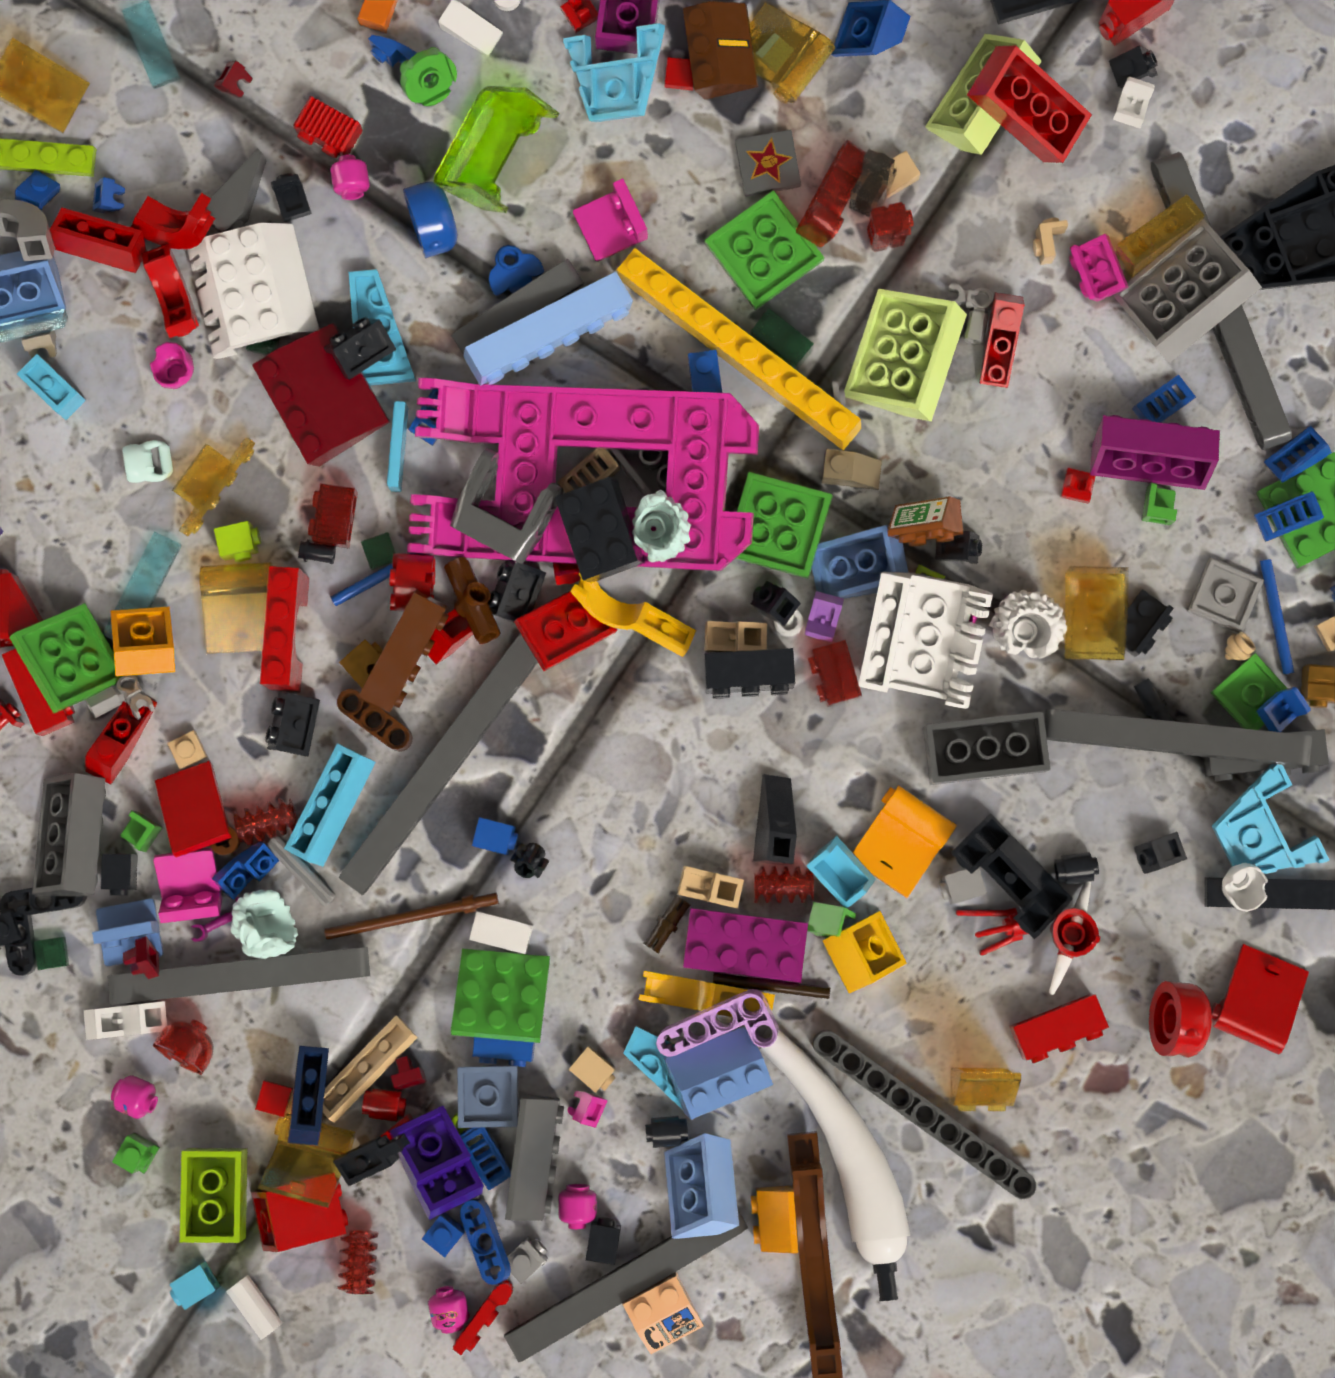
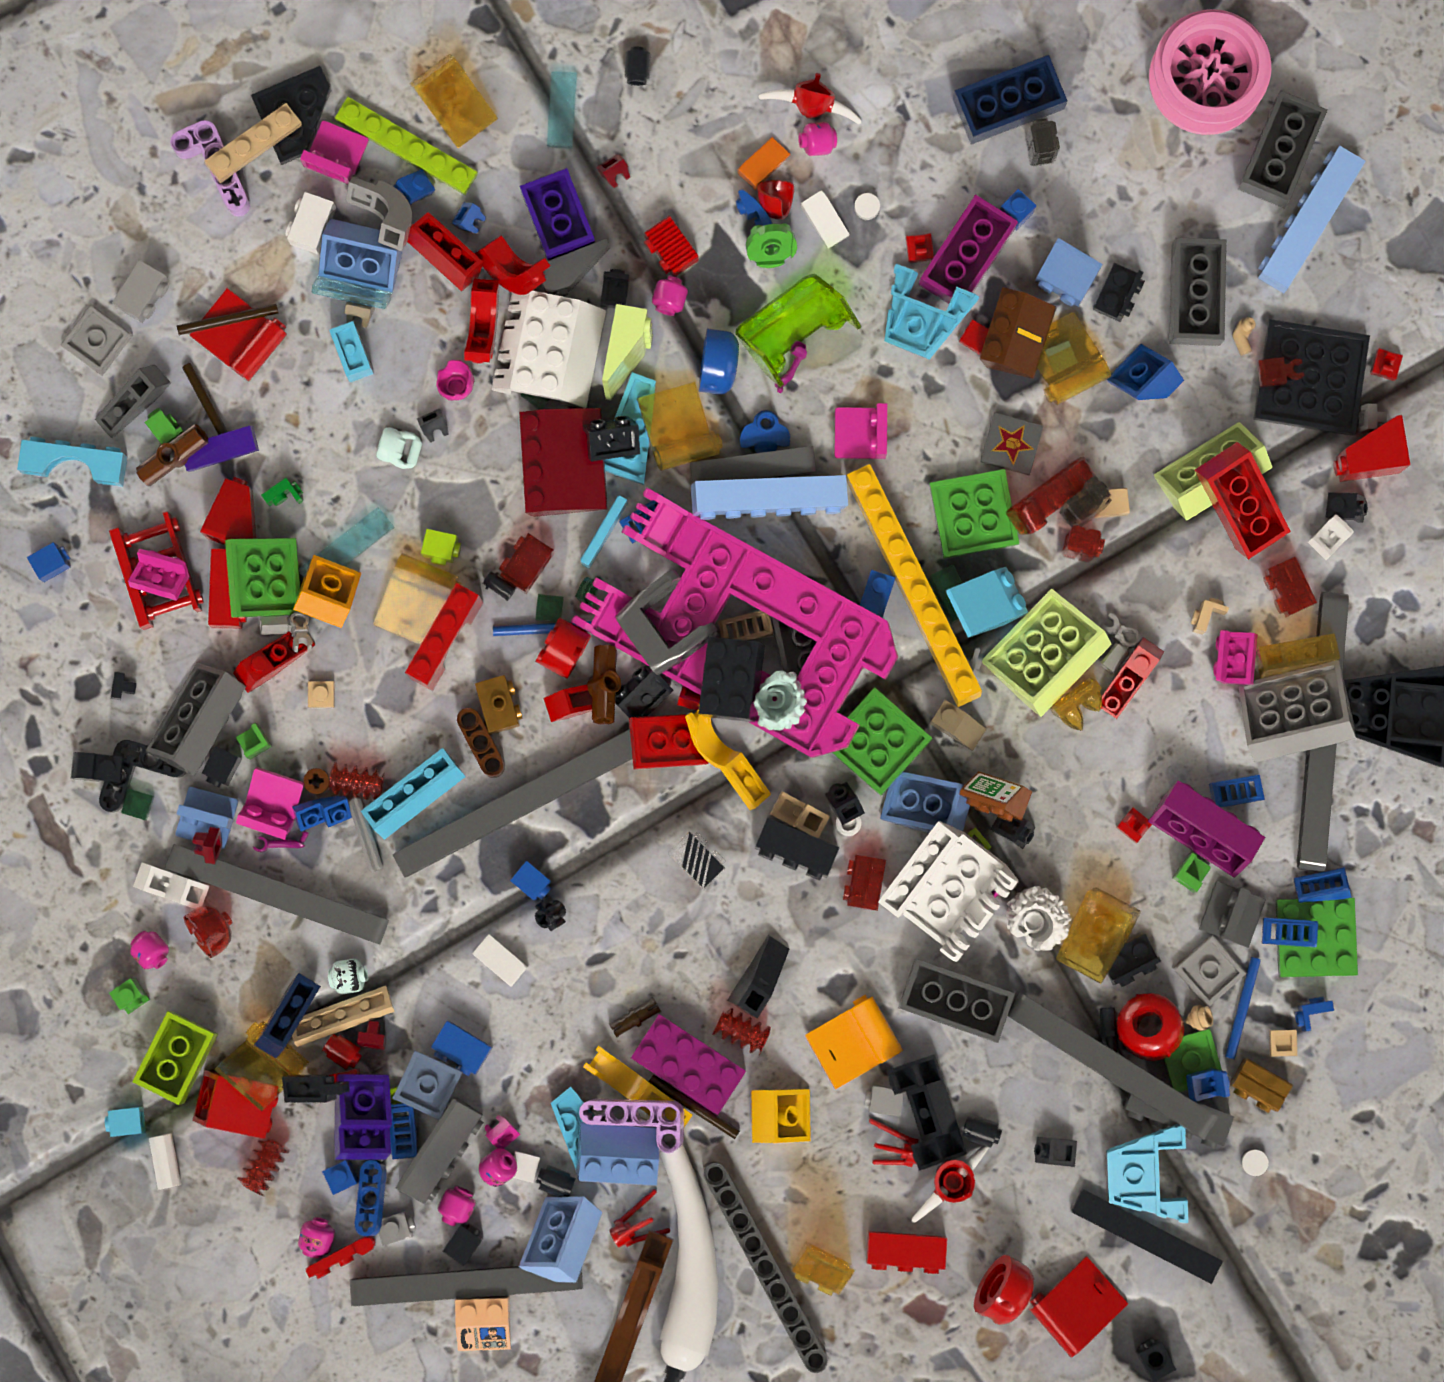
camera: 20 degrees right, 0 degrees up
(45, 564) = (278, 493): none -> green bracket
(169, 419) = (432, 422): none -> black tile
(192, 809) = (303, 744): red tile -> none
(194, 147) = (557, 214): none -> dark purple brick
(206, 479) = (440, 485): clear yellow bracket -> none
(263, 924) = (316, 863): light aqua hair -> none
(274, 1098) = (258, 1004): red tile -> none
(292, 724) = (414, 714): black bracket -> none
(329, 243) = (627, 346): none -> yellowish green slope
(352, 1024) = (347, 976): none -> light aqua head
(403, 651) = (530, 700): reddish brown brick -> none
(405, 510) = (586, 587): none -> clear green tile
(410, 28) = (776, 197): none -> red helmet
(422, 308) = (678, 429): none -> clear yellow door
(467, 904) = (484, 925): reddish brown bar -> none
(500, 995) = (475, 1010): bright green plate -> none
(508, 171) = (799, 351): none -> magenta piece
(593, 1070) = (520, 1104): tan brick -> none
(601, 1146) = (497, 1167): none -> dark pink head
(627, 1131) = (526, 1166): none -> white tile
(653, 733) = (697, 859): none -> brick
(710, 887) = (683, 1004): tan brick -> none
(762, 1150) = (624, 1232): none -> red plant
(775, 1219) = (607, 1292): light orange slope -> none
(822, 328) = (987, 602): none -> medium azure slope
(824, 616) = (878, 832): medium lavender bracket -> none
(828, 919) = (763, 1076): bright green panel -> none
(841, 872) = (792, 1043): medium azure panel -> none
(953, 398) = (1068, 706): none -> clear yellow tile
(1117, 173) = (1289, 587): none -> clear red brick
(1208, 699) = (1156, 1046): none -> red piece
(1220, 527) = (1232, 914): none -> dark grey bracket
(1245, 886) = (1108, 1211): white hair -> none

